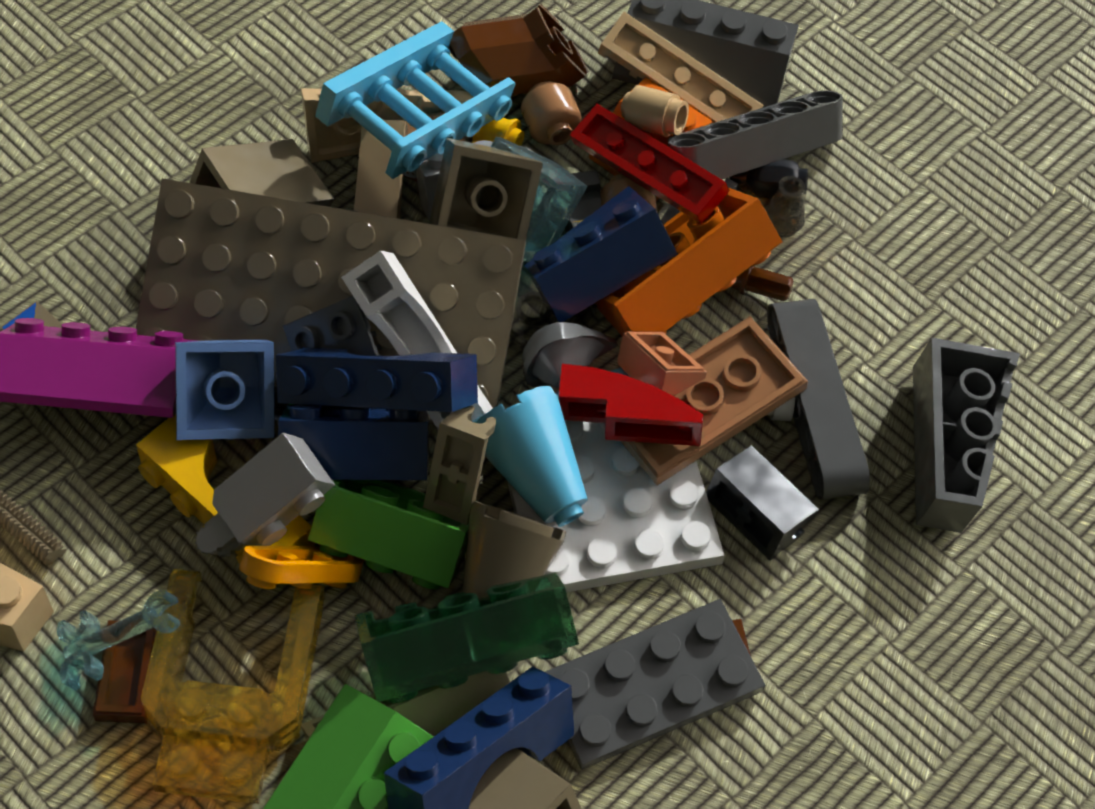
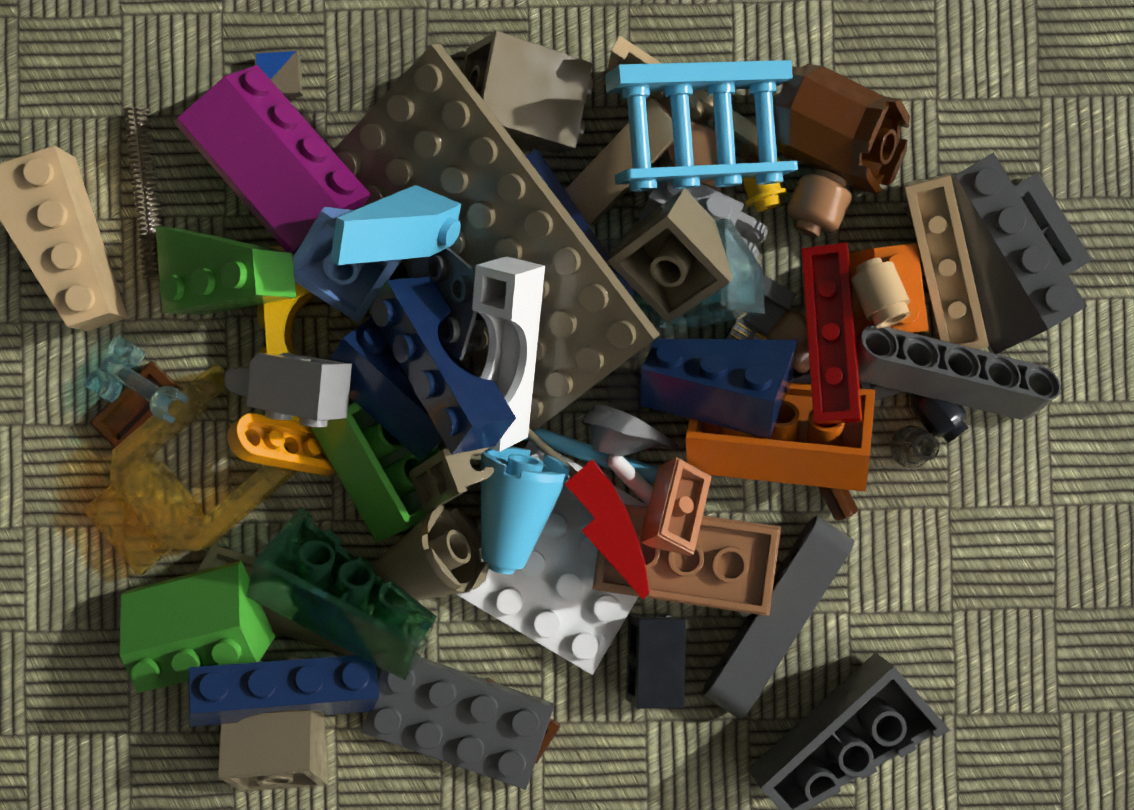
camera: 45 degrees right, 30 degrees up
(119, 480) = (218, 273): none -> bright green wedge
(254, 308) = (396, 228): none -> medium azure slope

